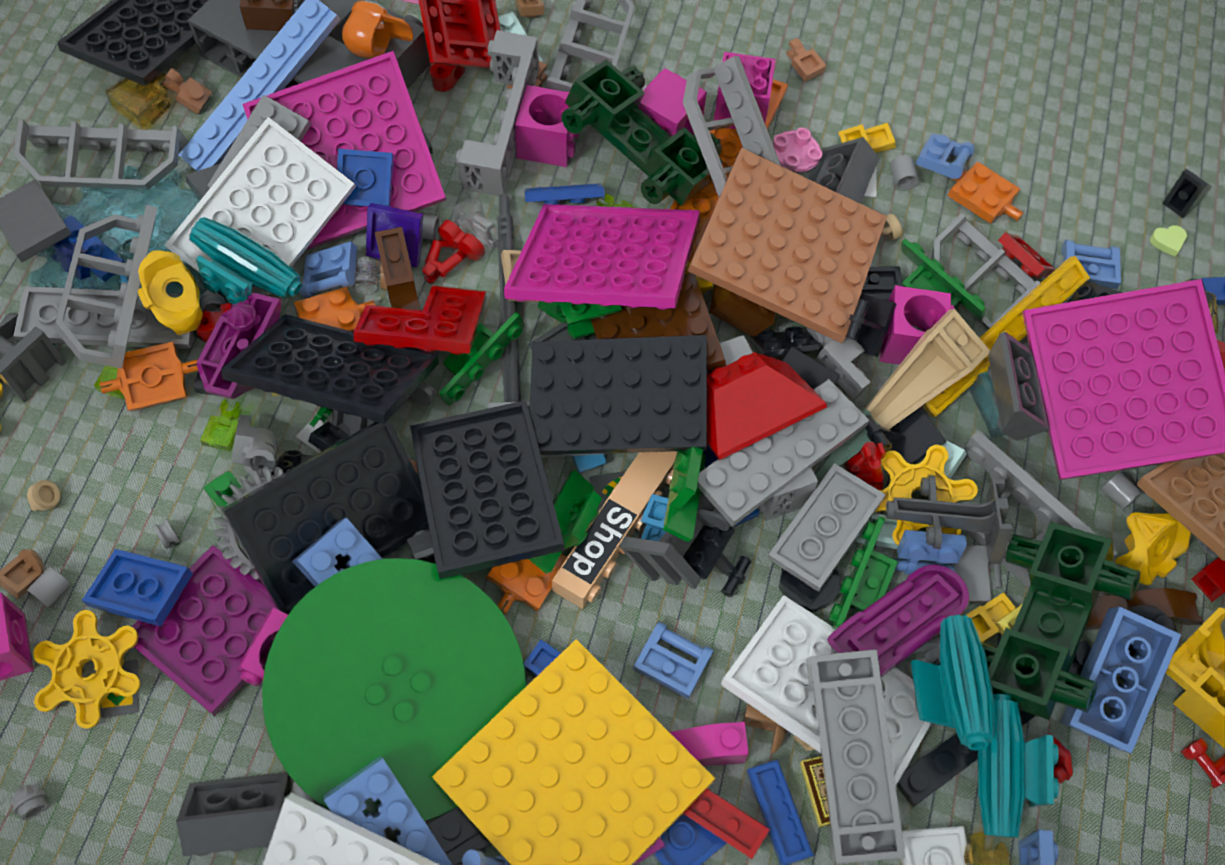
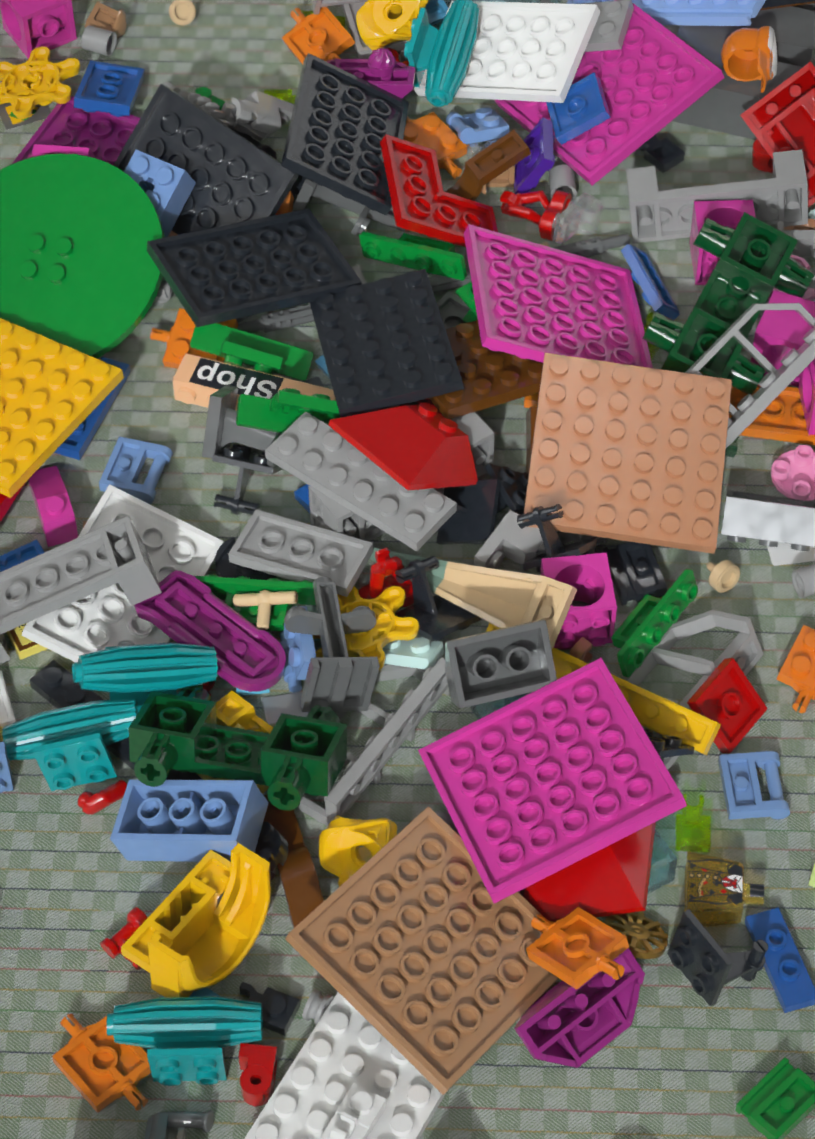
camera: 80 degrees right, 10 degrees down
(875, 569) = (264, 601): none -> tan piece

